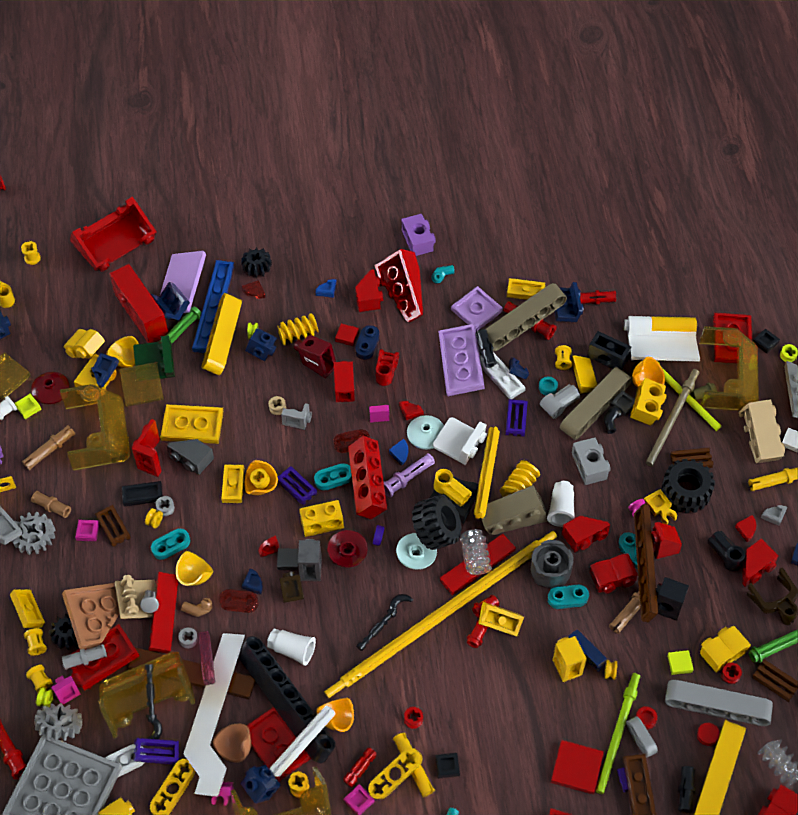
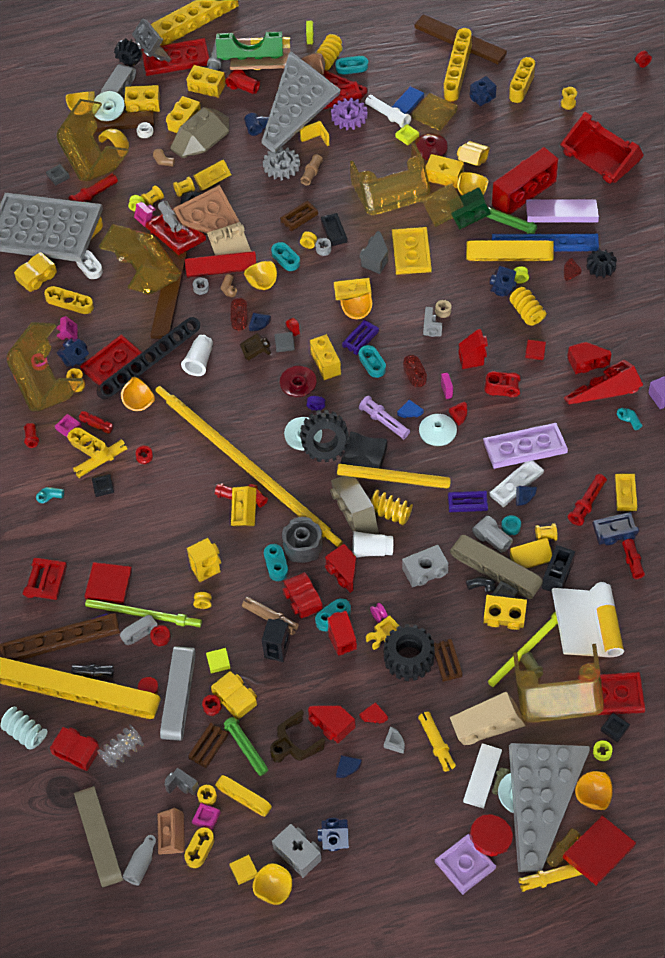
camera: 85 degrees right, 0 degrees up
(47, 448) = (371, 158): medium nougat pin -> none
(58, 722) = (113, 212): light grey gear -> none
(87, 530) = (292, 199): dark pink tile -> none
(104, 368) = (445, 170): dark blue slope -> none
(144, 449) = (372, 216): red bracket -> none
(149, 603) = (223, 248): light grey piece -> none
(150, 694) = (125, 272): black piece -> none
(156, 759) = (99, 295): dark purple tile -> none
(172, 302) = (528, 201): dark blue bracket -> none
(198, 747) = (123, 307): white sticker -> none
(206, 658) = (180, 298): clear pink axle -> none
(233, 742) = (108, 329): nougat helmet -> none
(263, 481) = (357, 304): yellow bush -> none
(302, 741) = (105, 369): white axle -> none
(309, 560) = (278, 351): flat silver brick -> none
(316, 355) = (502, 318): dark red torso -> none
(327, 289) = (587, 327): blue tile -> none
(367, 340) = (530, 367): dark blue plate -> none
(367, 477) = (372, 383): red brick -> none
(392, 611) = (240, 425): black piece -> none
(451, 488) = (364, 444): yellow piece -> none
(459, 577) = (300, 486): red tile -> none
(460, 440) = (429, 453): white bracket -> none
(475, 552) = (302, 475): clear piece -> none
(477, 308) = (593, 453): lavender tile -> none
(485, 348) = (548, 454): black pin -> none
(525, 316) = (582, 487): dark tan beam -> none
(592, 654) = (216, 574): dark blue slope -> none
(645, 563) = (313, 613): reddish brown tile -> none
(649, 369) = (539, 609): light orange helmet -> none
(687, 387) = (529, 646): dark tan bar -> none
(726, 549) = (343, 692): black piece -> none

